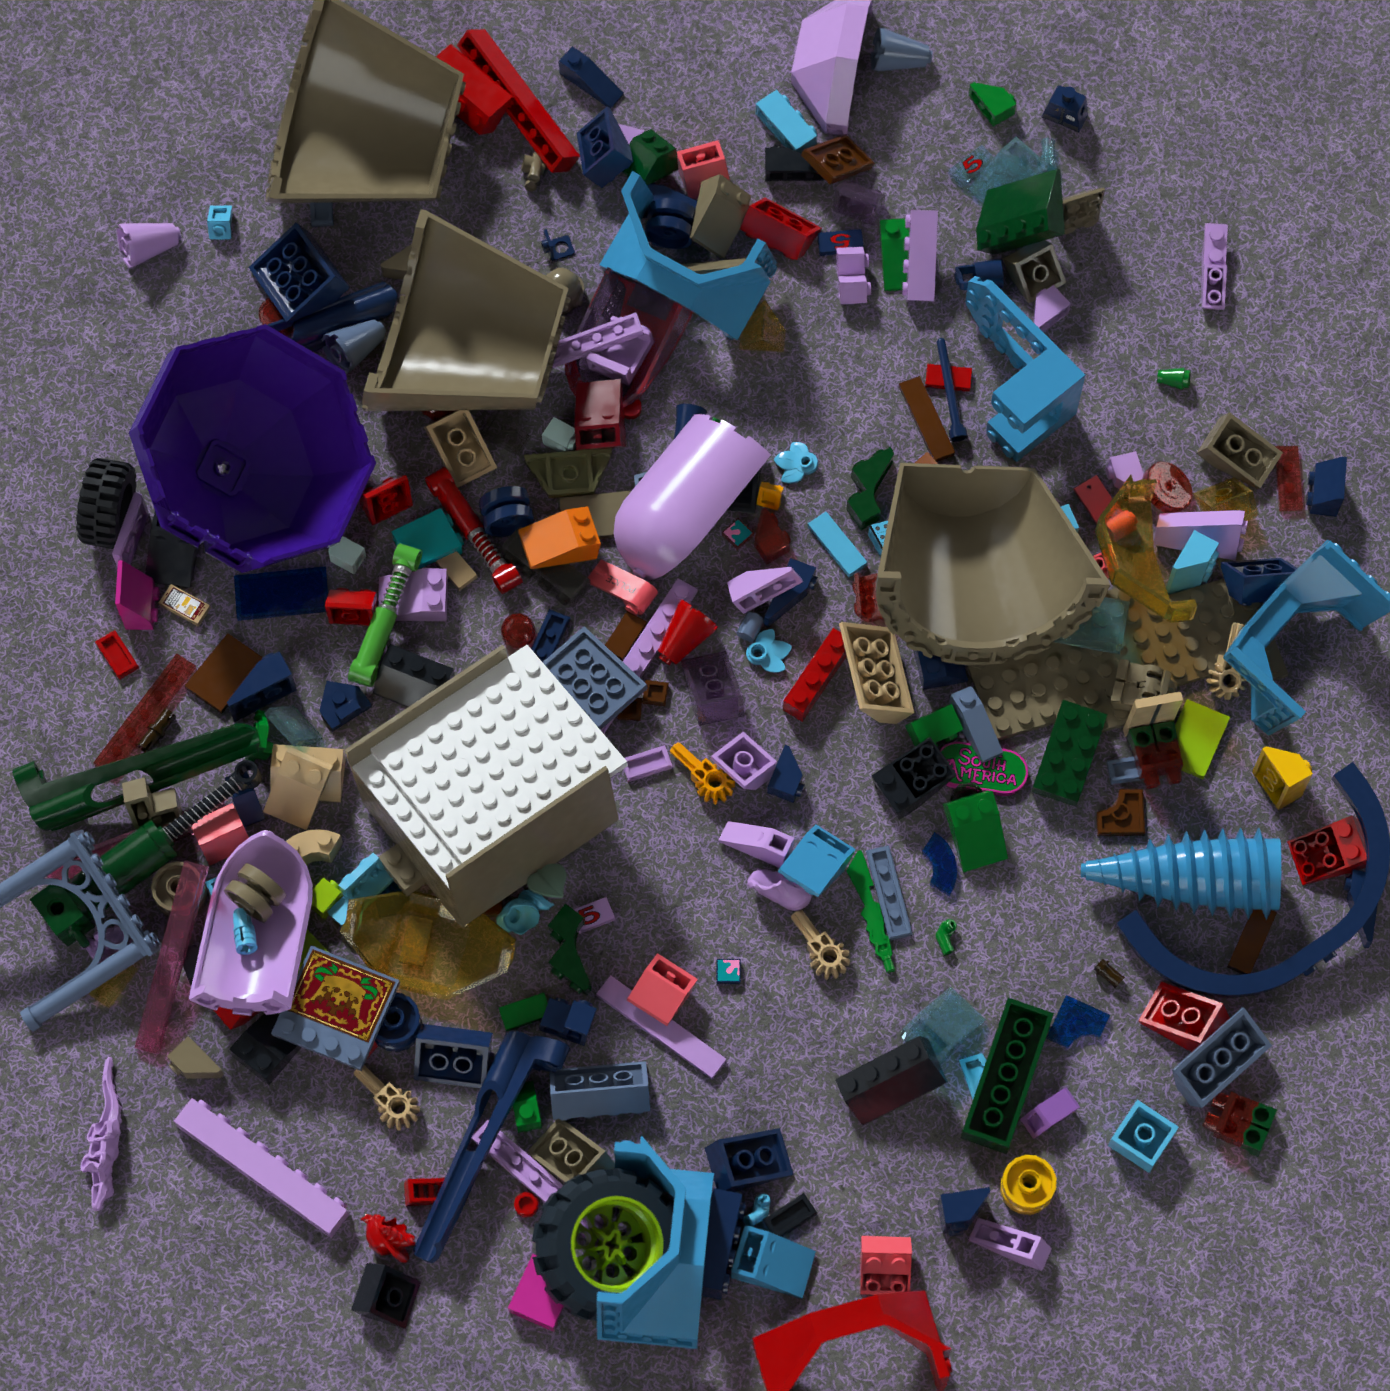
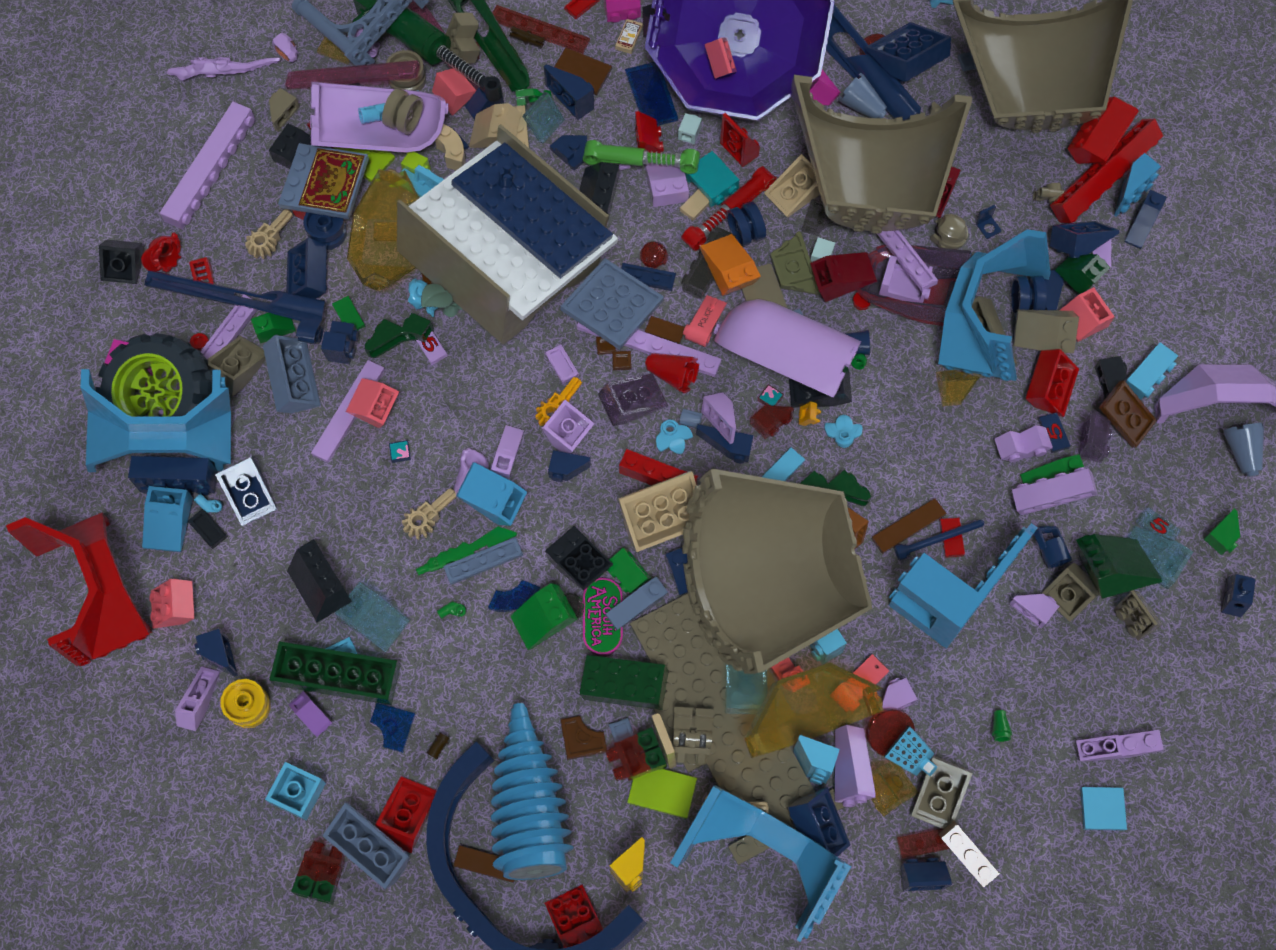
camera: 80 degrees right, 0 degrees up
(97, 1046) = (285, 47): none -> lavender rock
(261, 493) = (720, 57): none -> coral slope
(474, 732) = (532, 209): none -> dark blue plate
(545, 75) = (1138, 179): none -> dark azure slope
(1048, 153) = (1183, 588): clear light blue pin -> none
(1198, 468) = (911, 753): none -> medium azure torso
(1276, 301) = (1103, 808): none -> medium azure tile
(1310, 438) = (969, 854): none -> arch

